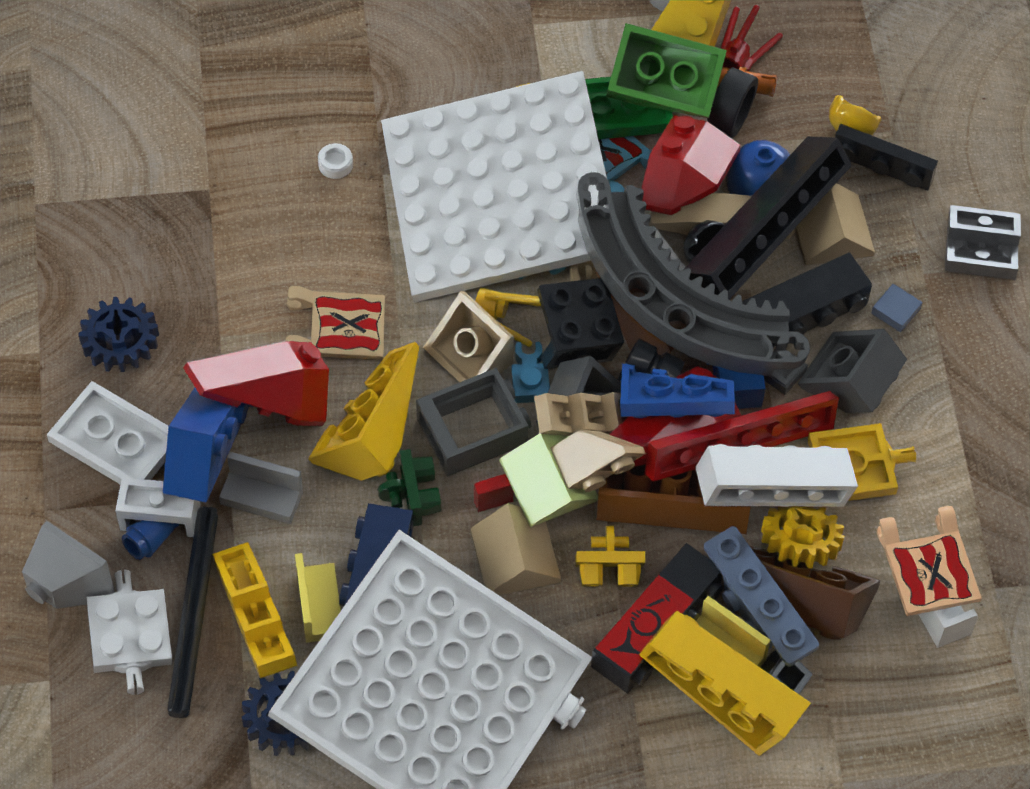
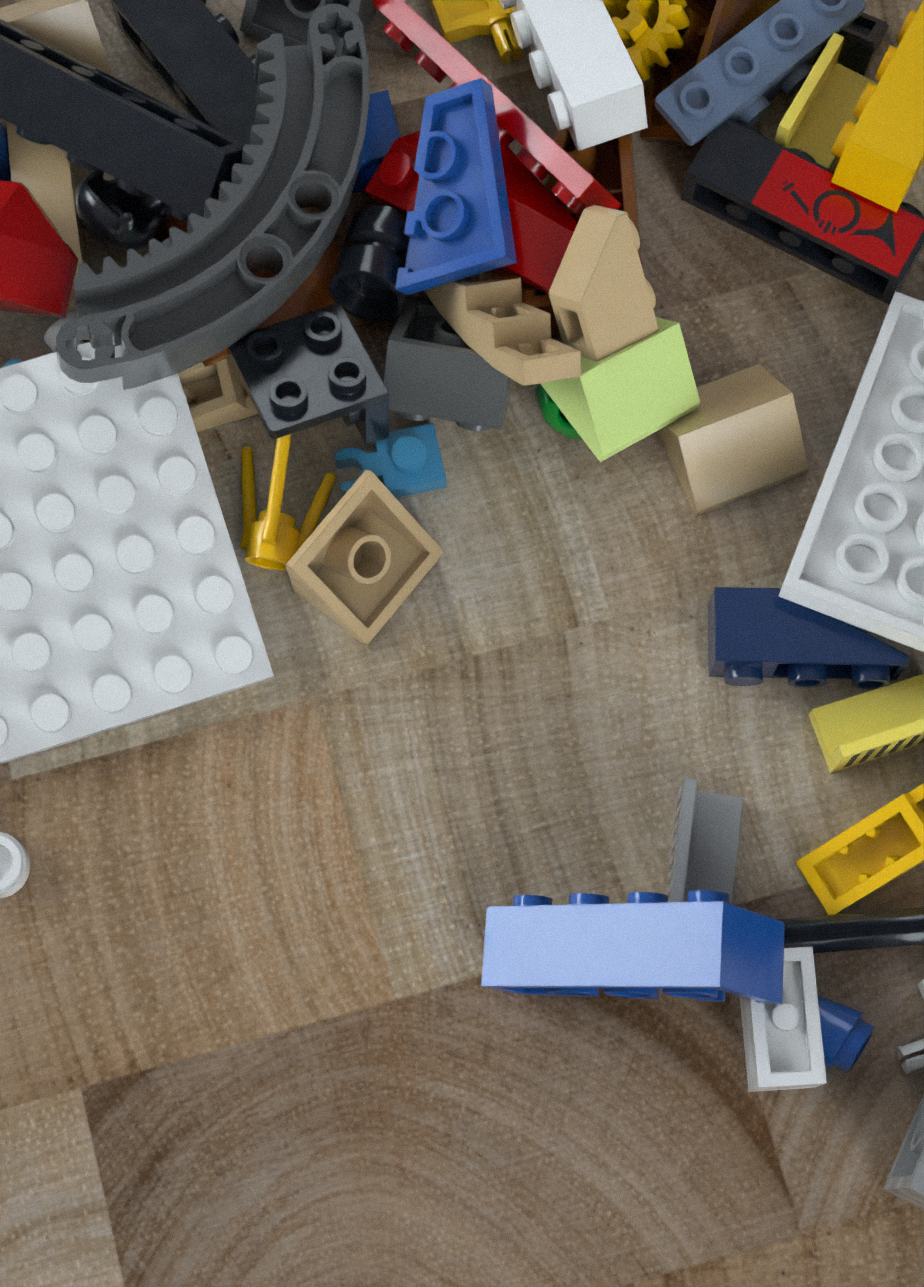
camera: 95 degrees left, 15 degrees up
(101, 332) = (428, 1146): dark blue gear -> none
(111, 435) = (648, 1136): white plate -> none
(272, 377) = (531, 868): red wedge -> none
(342, 322) = (345, 783): flag -> none
(374, 422) = (546, 696): yellow wedge -> none
(412, 471) = (676, 596): dark green hips -> none
(463, 394) = (544, 582): dark grey window -> none
(492, 493) = (637, 481): red tile -> none
(627, 562) = (717, 290): yellow hips -> none

